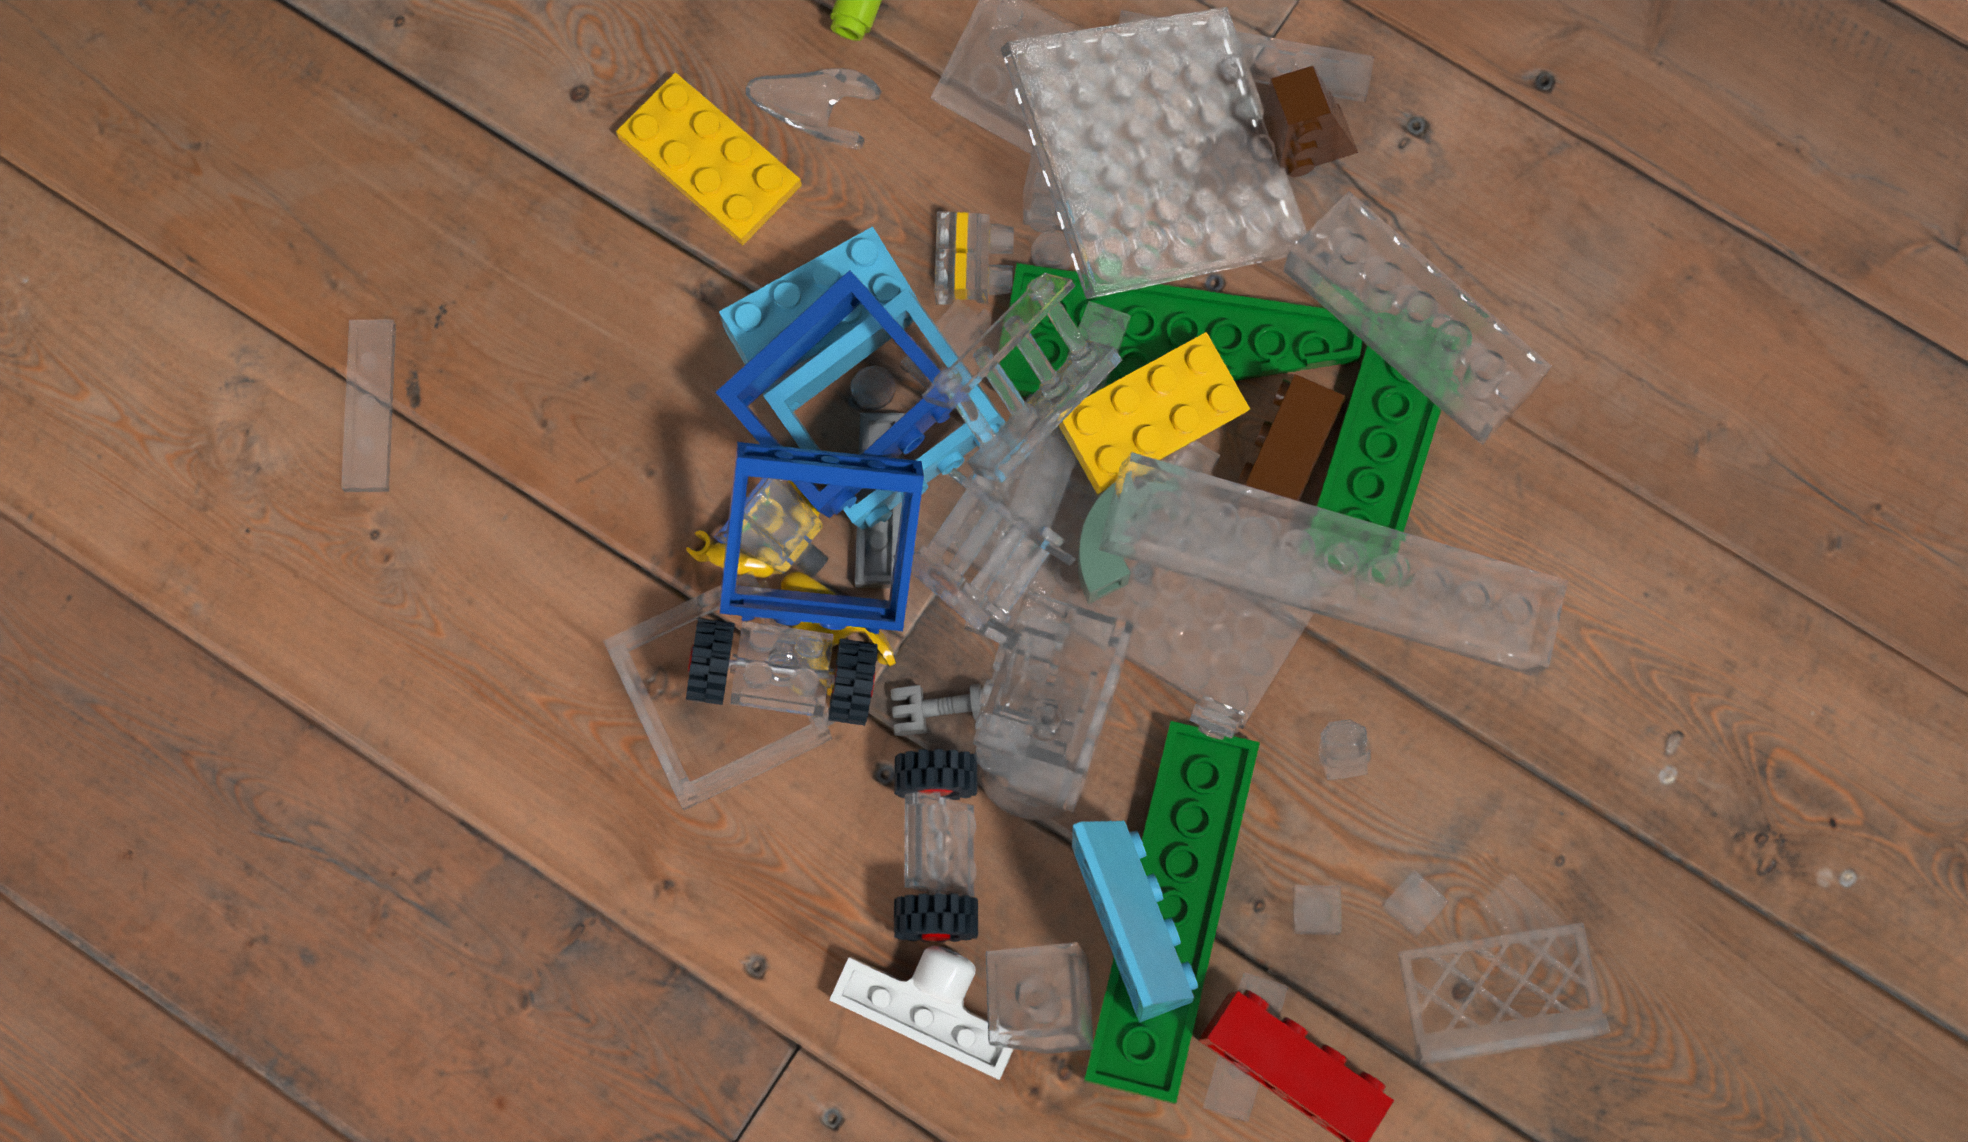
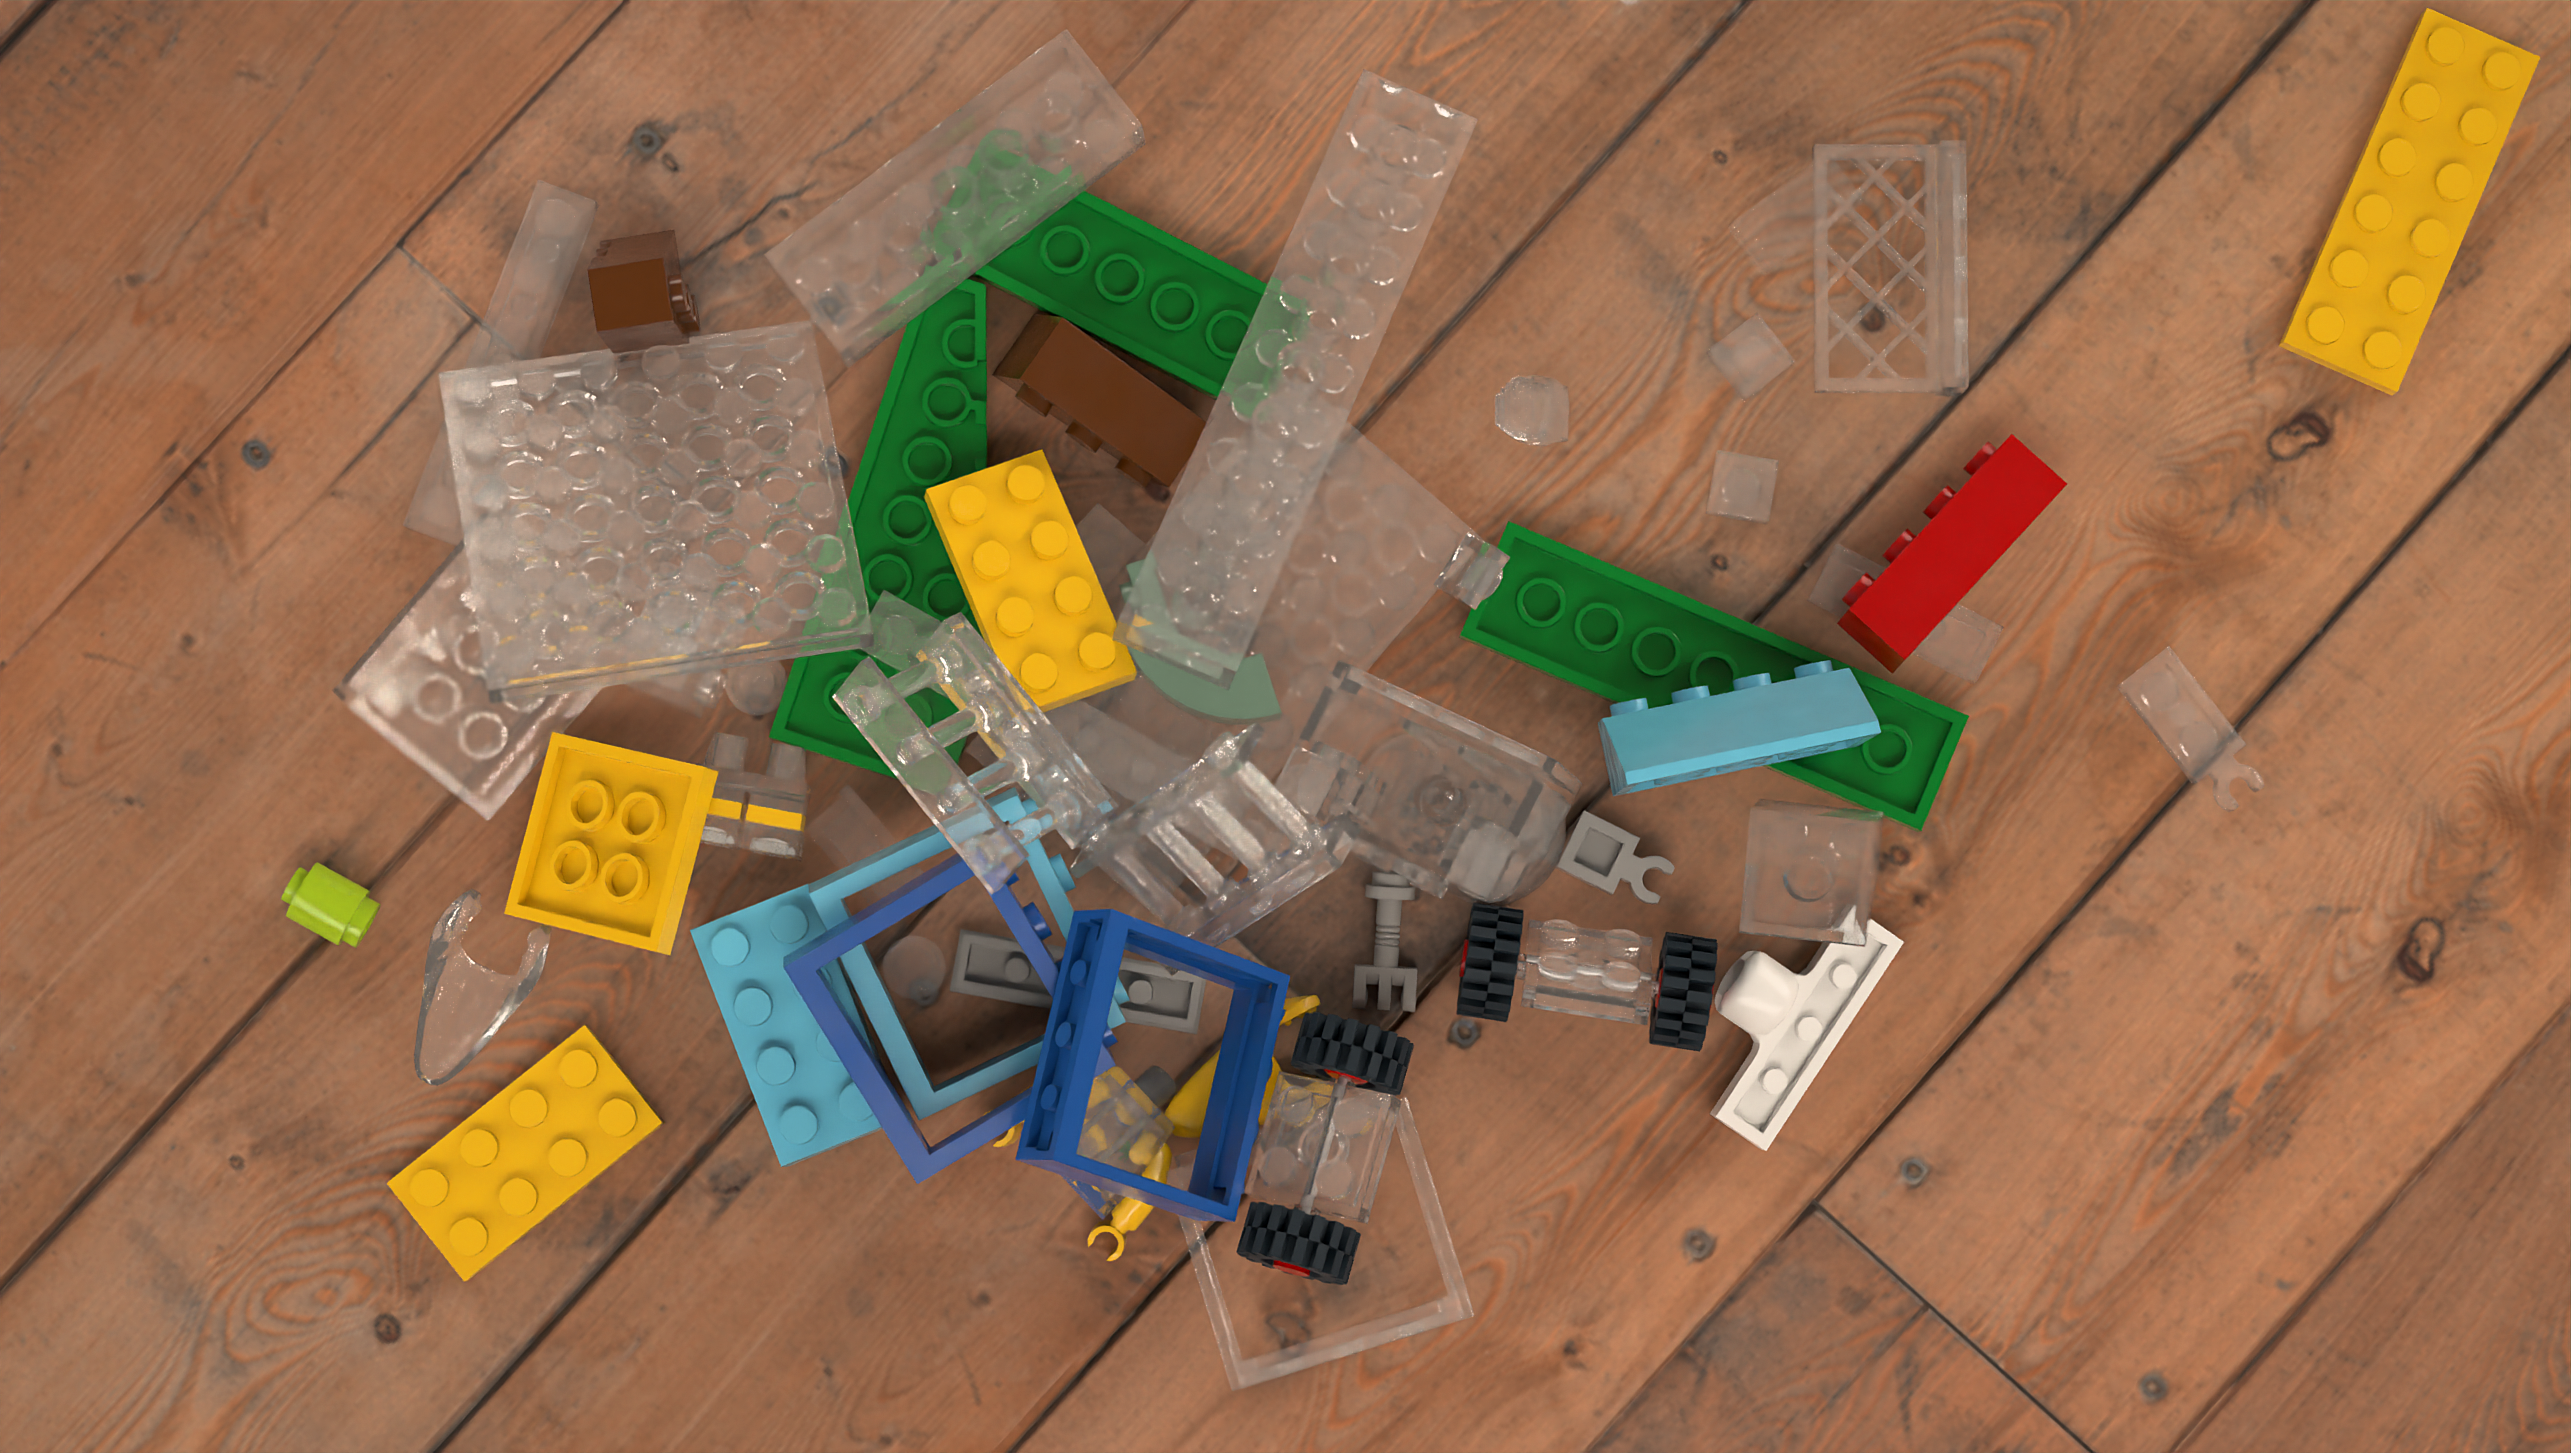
camera: 90 degrees left, 10 degrees up
(925, 170) = (611, 842): none -> yellow plate
(1027, 851) = (1604, 856): none -> light grey plate

